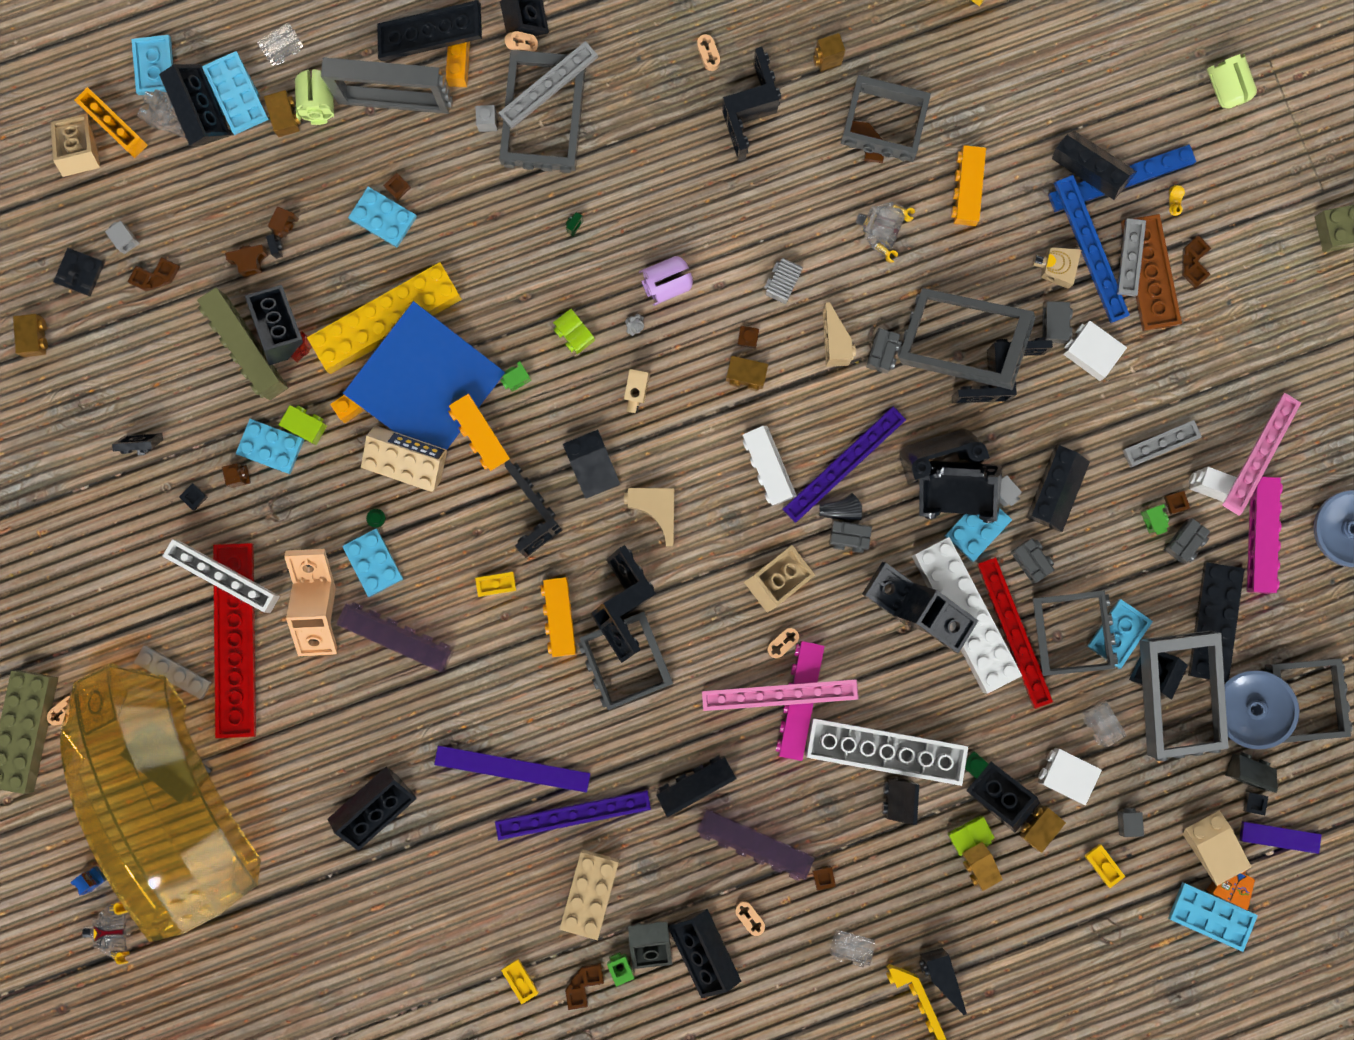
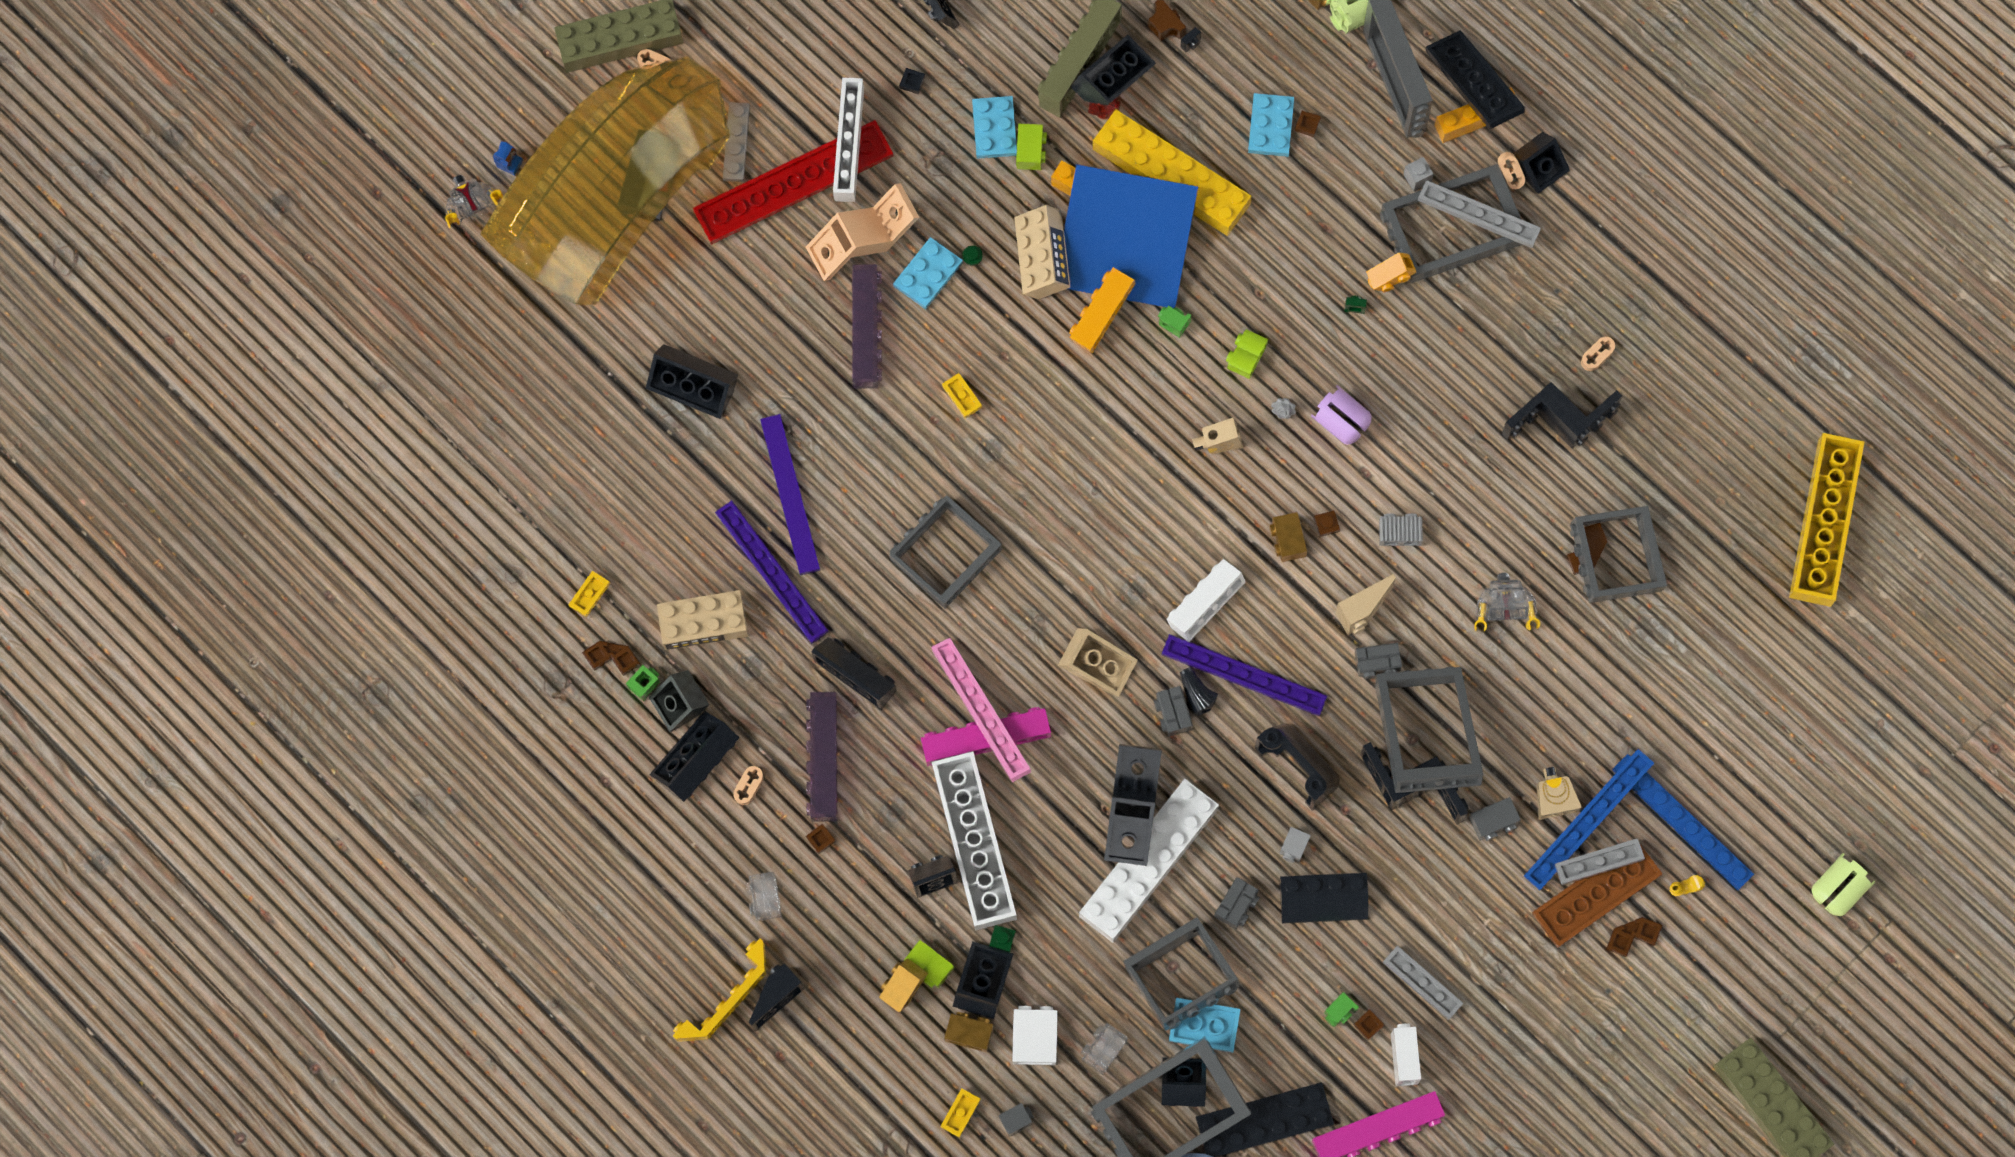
camera: 70 degrees right, 10 degrees down
(236, 475) = (951, 109): reddish brown brick -> none
(282, 222) = (1217, 35): reddish brown brick -> none
(542, 532) = (1031, 412): black bracket -> none
(559, 617) = (958, 469): light orange brick -> none
(562, 177) = (1391, 272): none -> light orange brick
(591, 464) = (1124, 430): black slope -> none
(636, 593) = (999, 518): black bracket -> none
(657, 504) = (1114, 512): tan arch -> none
(786, 646) = (1037, 691): light nougat beam -> none
(829, 52) = (1656, 467): pearl gold brick -> none
(961, 490) = (1271, 794): black windscreen -> none
(969, 185) = (1592, 669): light orange brick -> none
(974, 535) = (1244, 836): medium azure plate -> none
(1014, 633) = (1154, 918): red plate -> none
(1093, 164) = (1680, 781): black slope -> none
(1094, 350) = (1485, 870): white brick -> none
(1187, 541) = (1333, 1052): dark grey brick -> none
(1261, 454) = (1458, 1078): bright pink plate -> none

